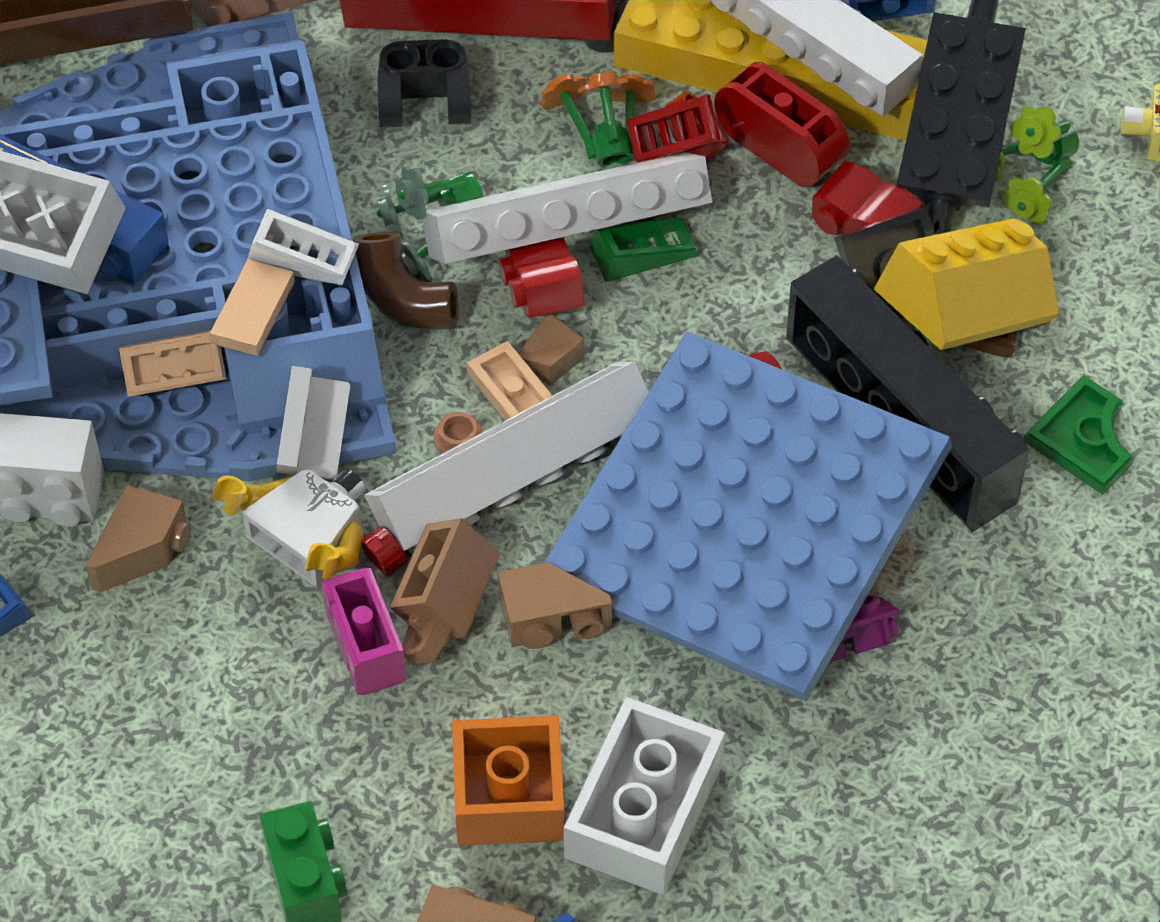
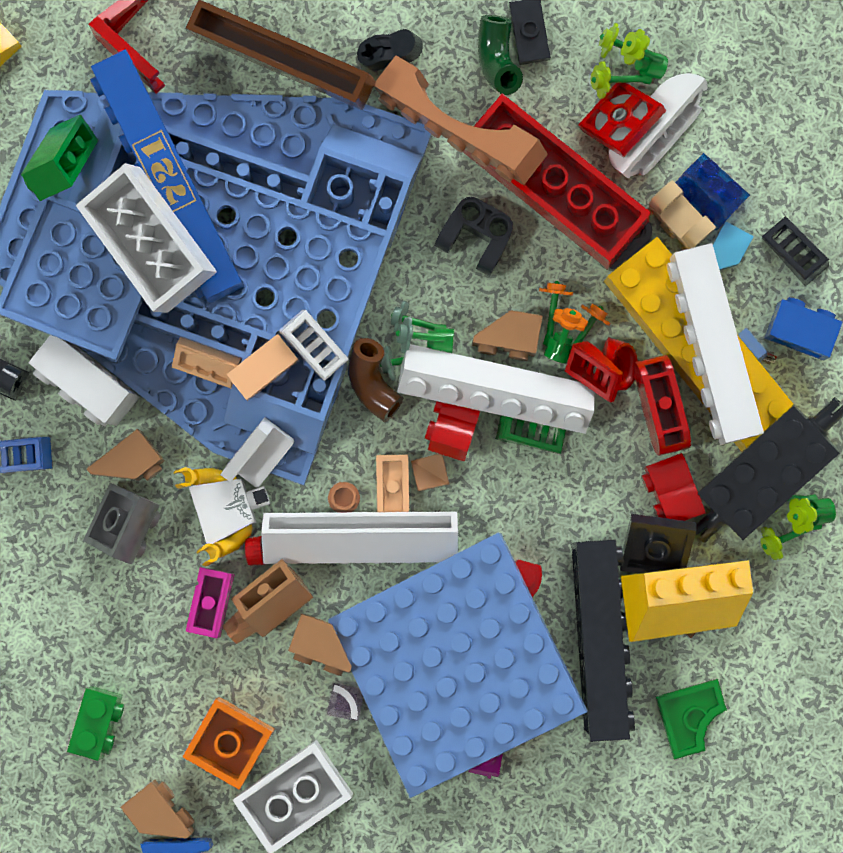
camera: 30 degrees right, 30 degrees up
(178, 608) = (122, 524): none -> flat silver brick
(548, 148) = (514, 332): none -> medium nougat slope
(632, 661) = (345, 702): none -> clear purple tile

